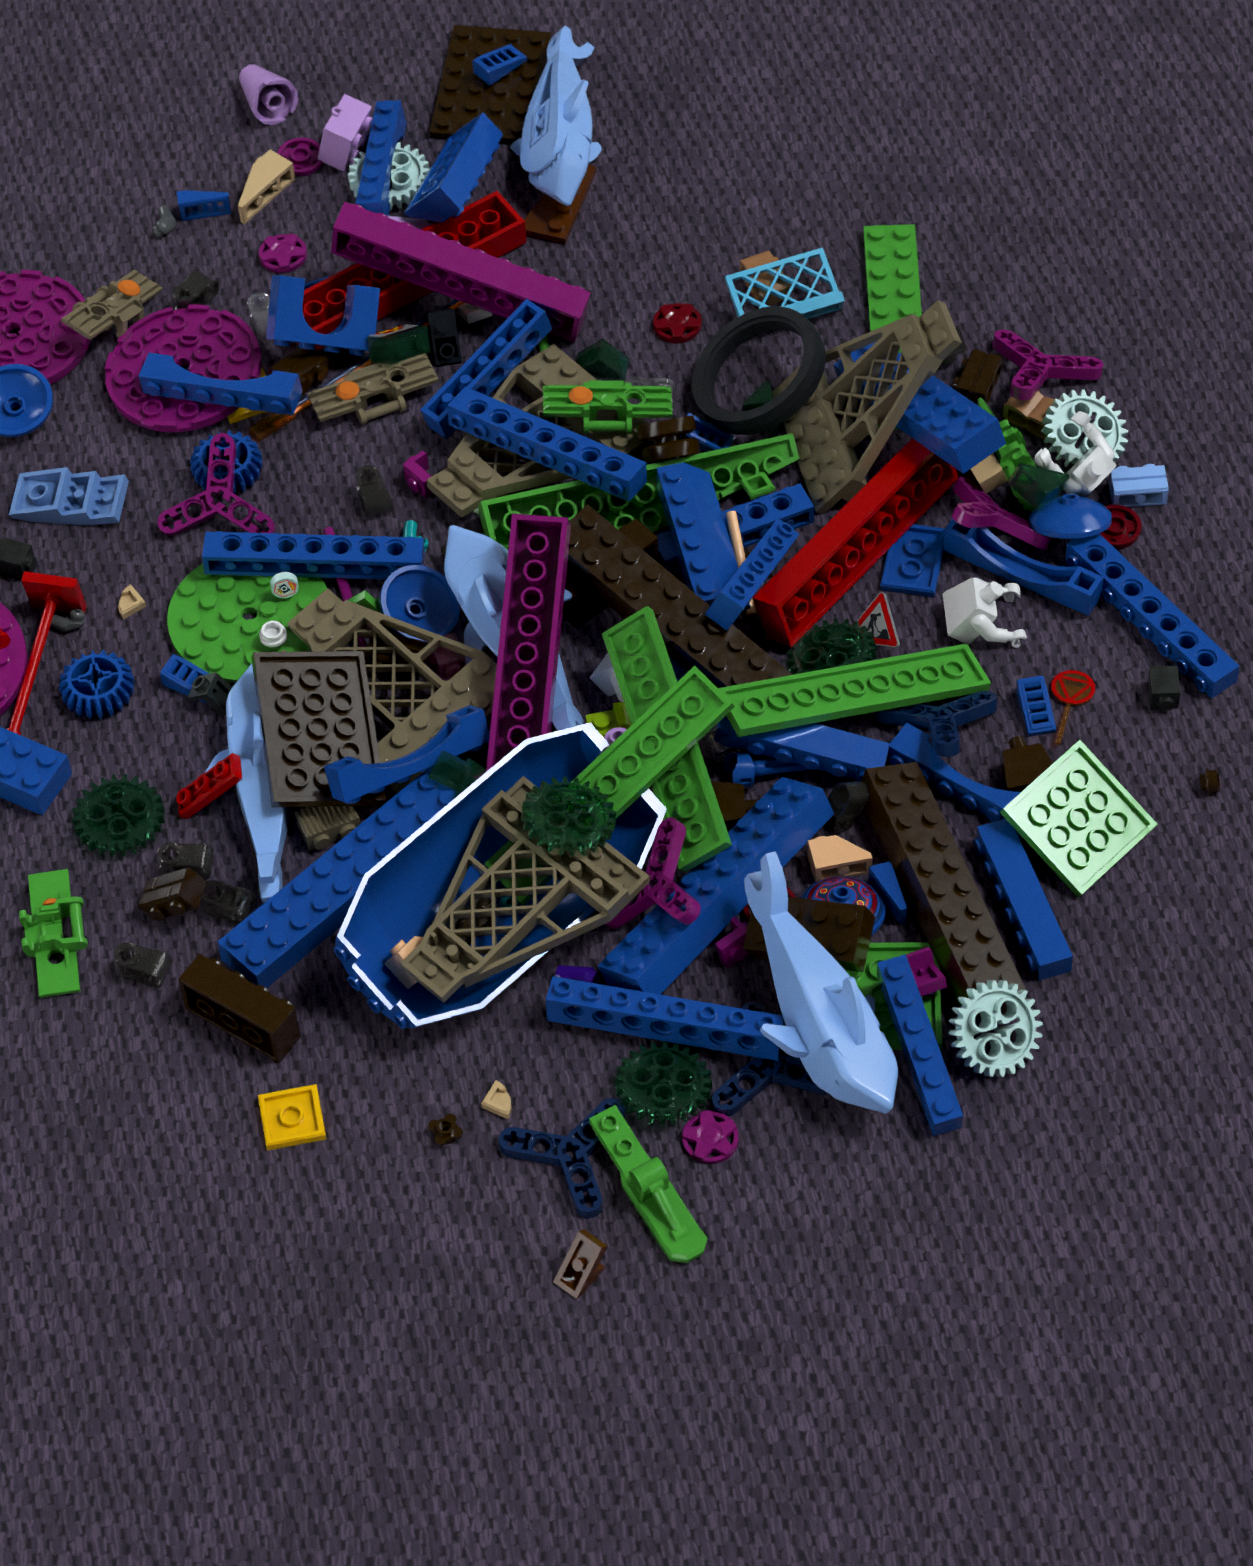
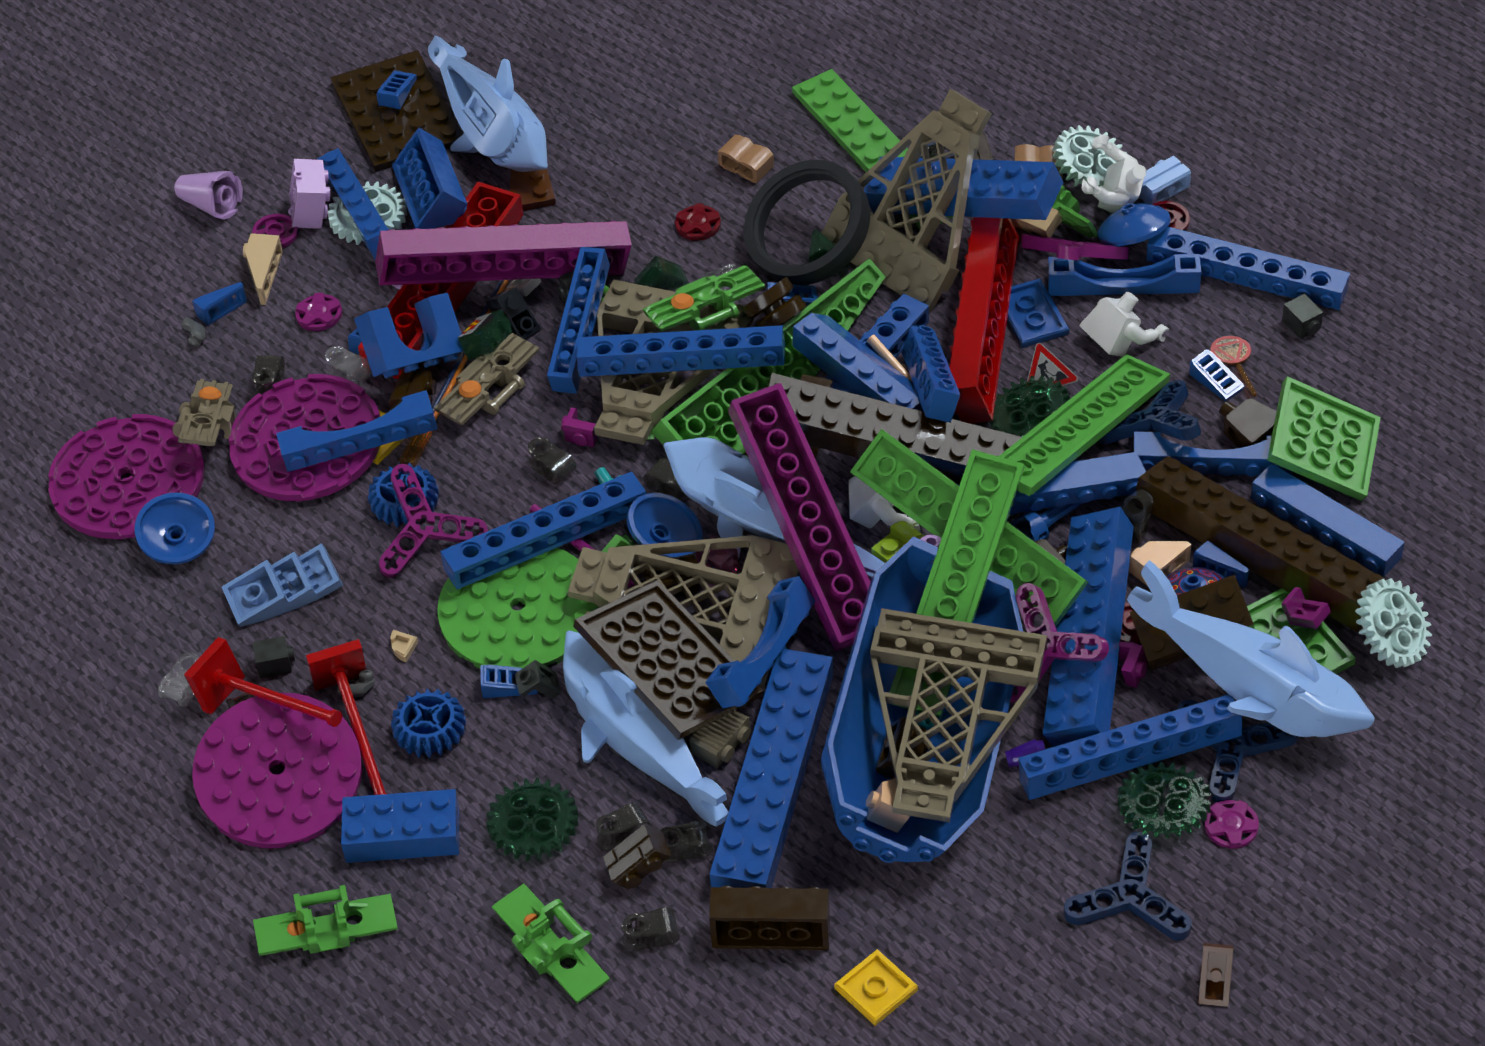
camera: 30 degrees left, 5 degrees down
(209, 786) = (601, 753): red tile -> none
(273, 634) = (557, 608): white plate -> none
(284, 585) = (537, 564): tile -> none
(449, 1136) = (1014, 936): dark brown plate -> none
(455, 772) = (820, 640): brick -> none
(498, 1100) = (1038, 885): tan tile -> none
(568, 816) = (950, 618): clear green gear -> none
(650, 1189) = (1220, 887): bright green piece -> none
(757, 485) = (869, 311): bright green slope -> none
(810, 307) = (811, 152): medium azure fence -> none
(919, 1045) = (1373, 684): blue brick -> none
(1037, 366) = (1021, 128): magenta piece -> none
(1037, 484) = (1097, 207): clear green slope -> none
(1210, 781) = (1392, 368): dark brown plate -> none

